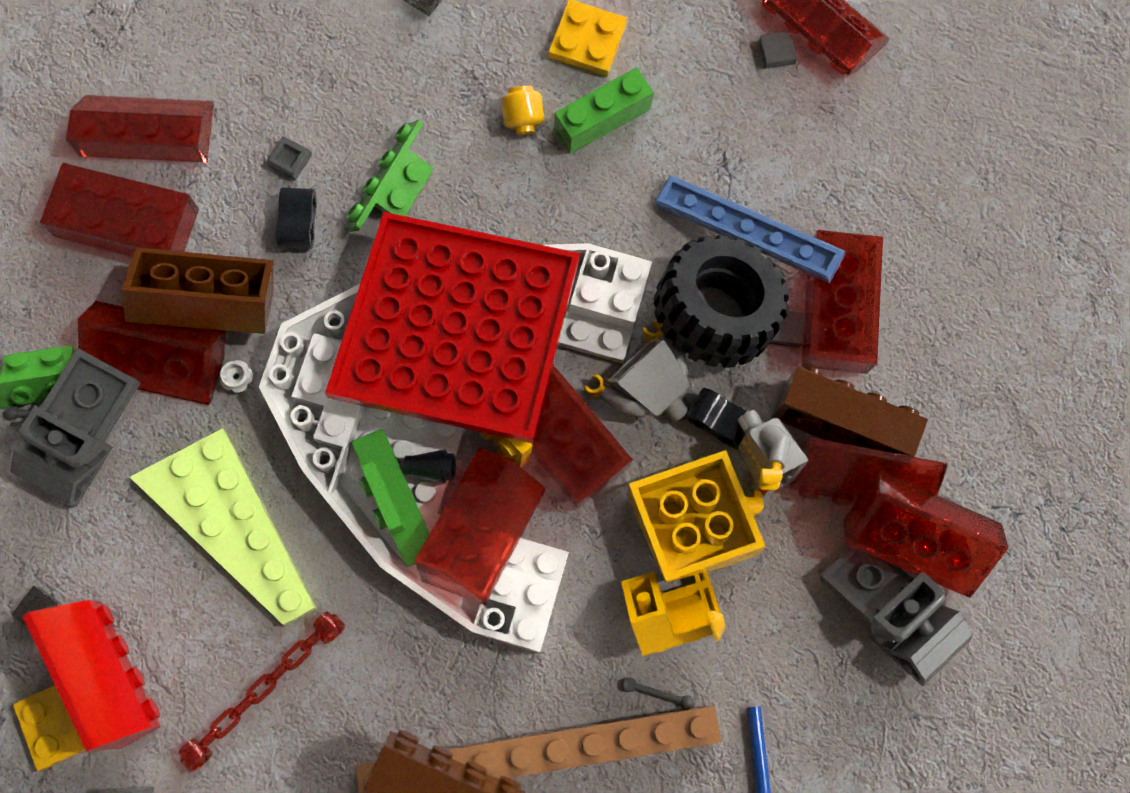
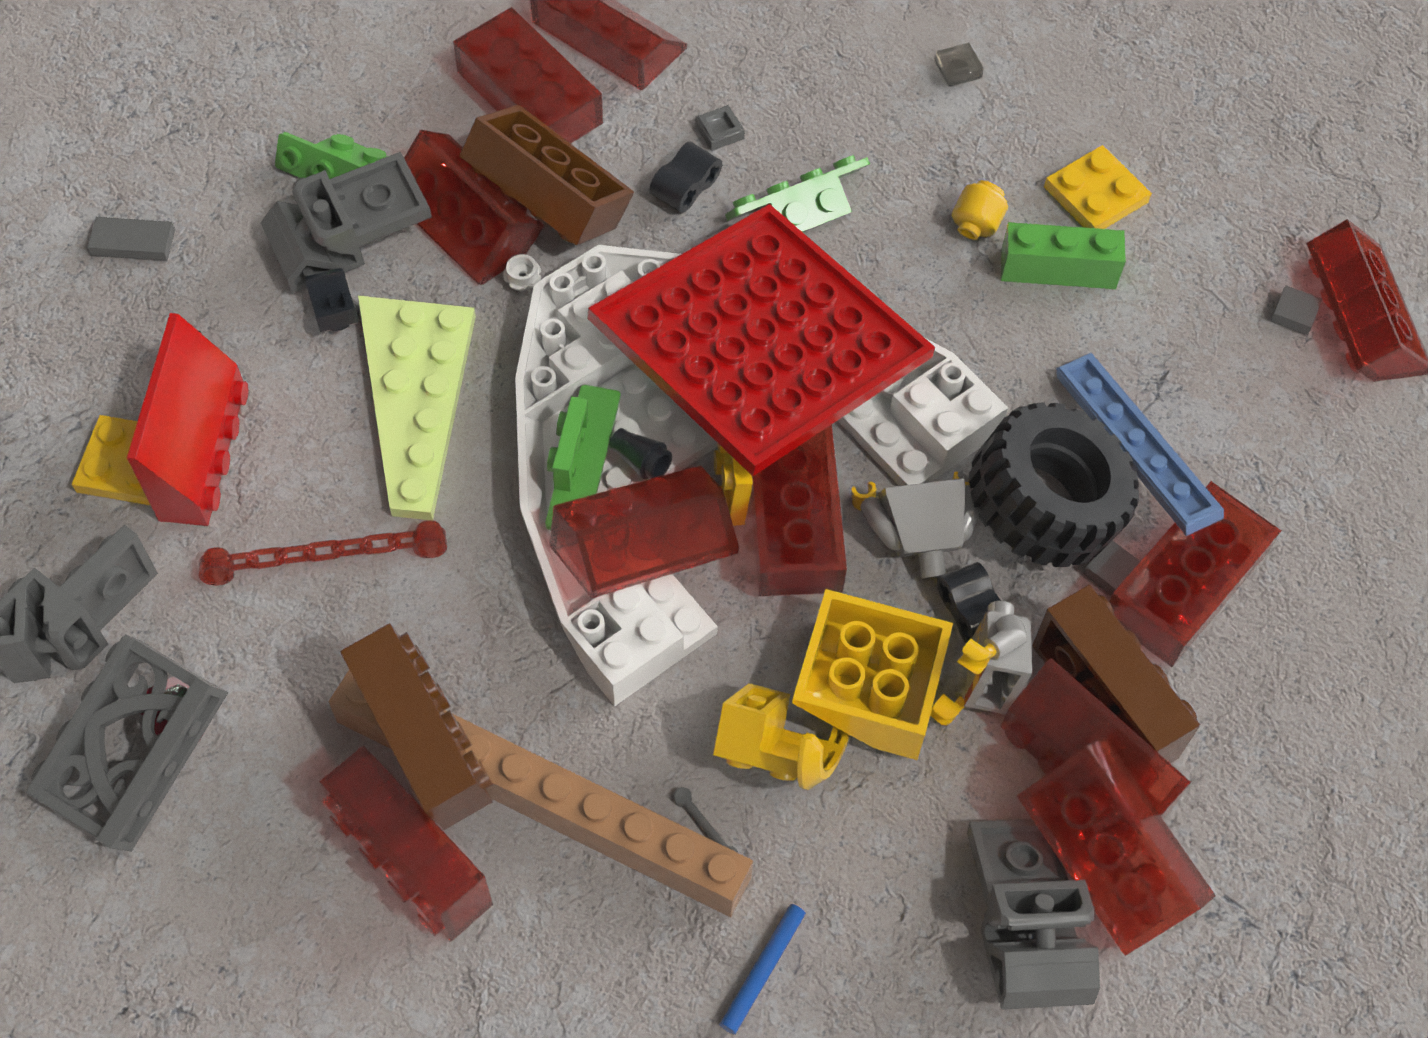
camera: 40 degrees right, 15 degrees down
(114, 496) = (331, 300): none -> black bracket

